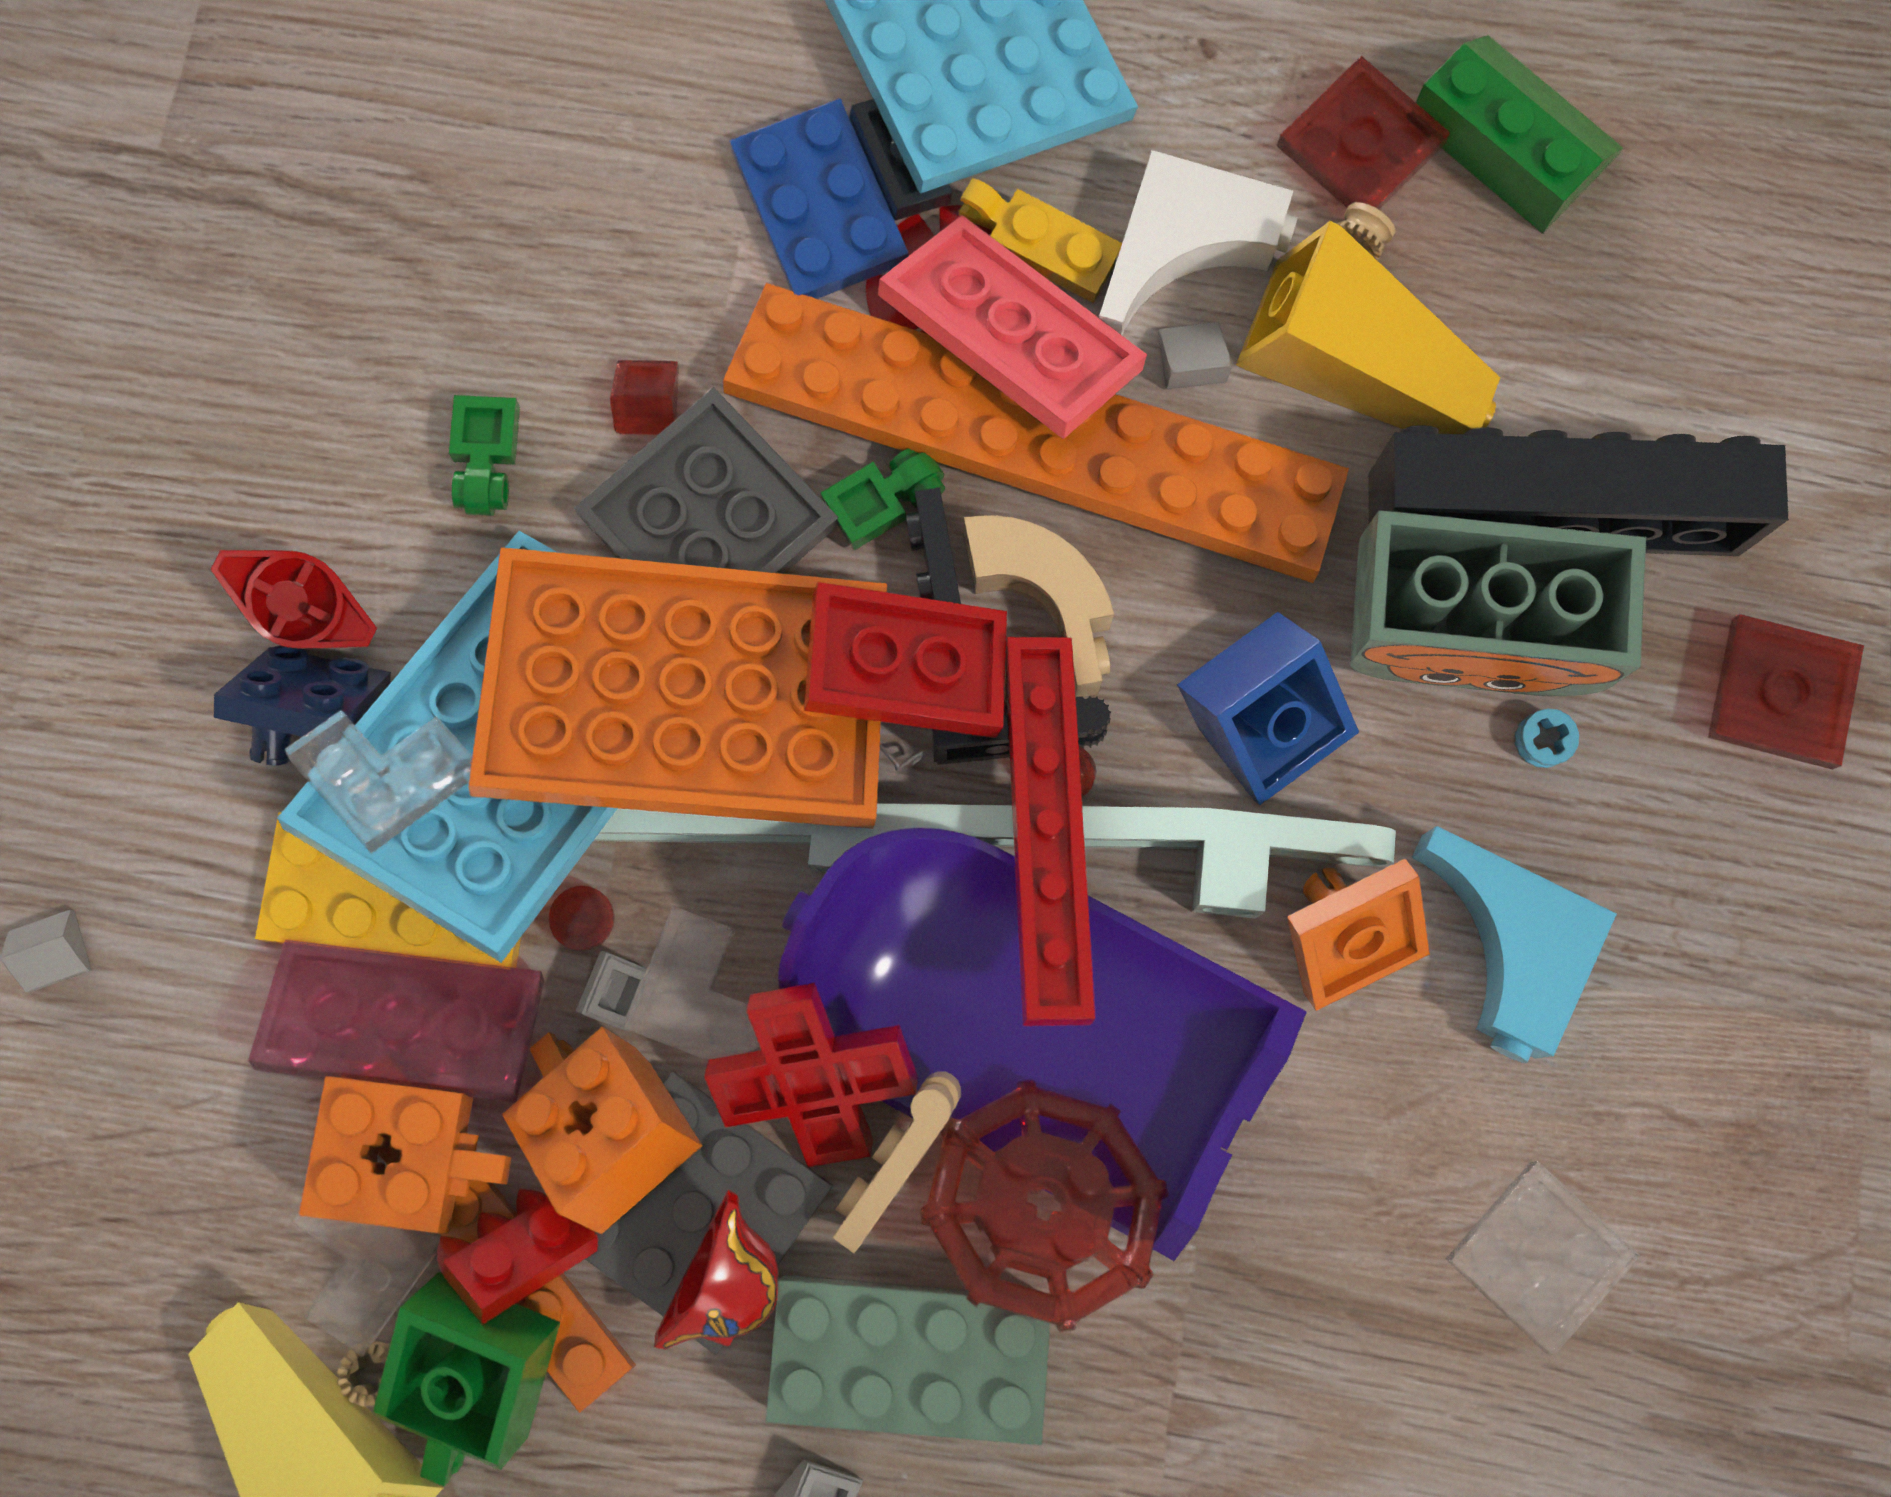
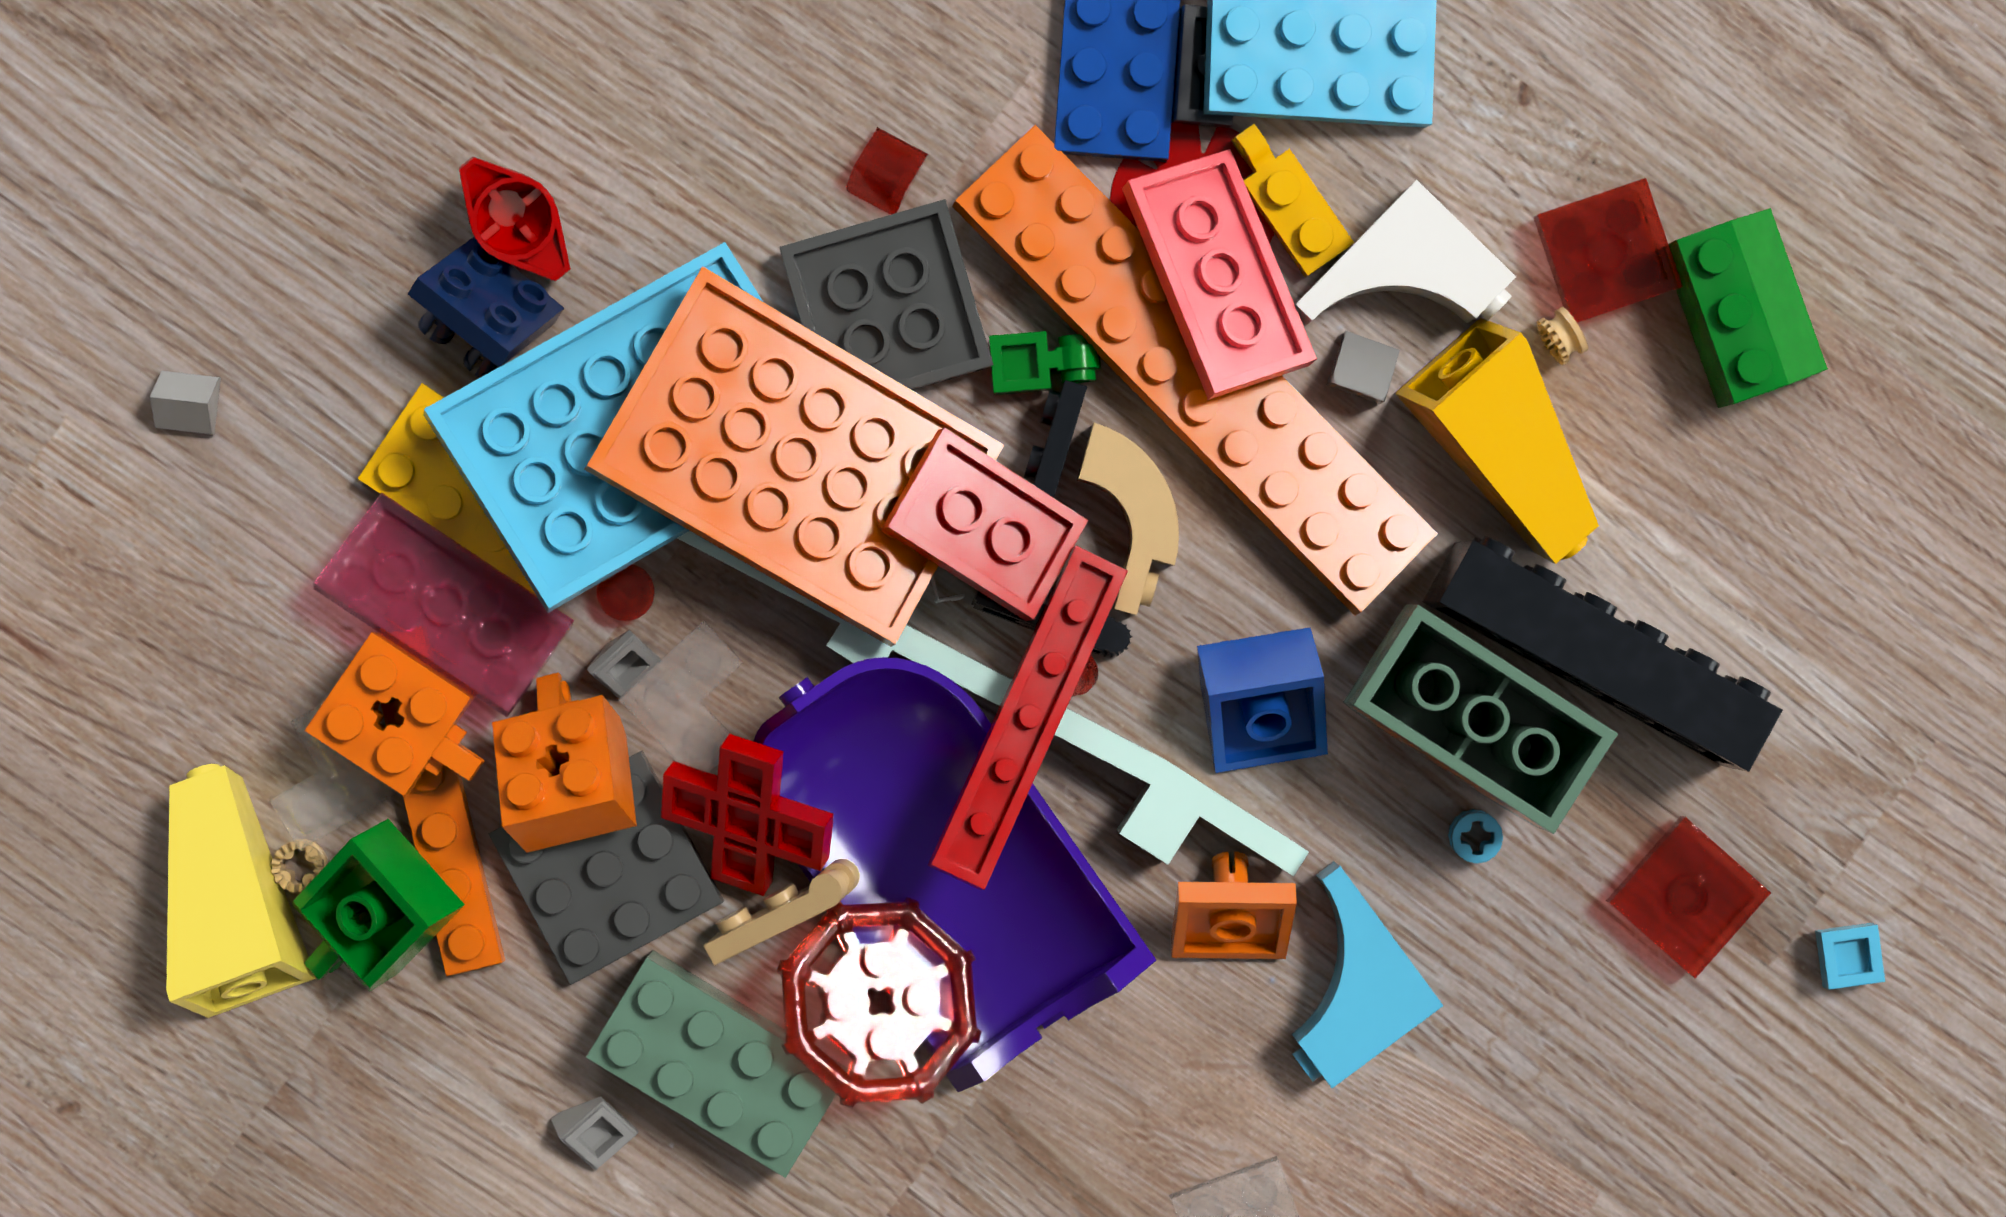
camera: 30 degrees right, 10 degrees up
(375, 791) = (518, 433): clear plate -> none
(483, 435) = (734, 142): green plate -> none
(513, 1254) = (452, 836): red plate -> none
(726, 1285) = (603, 940): red hat -> none

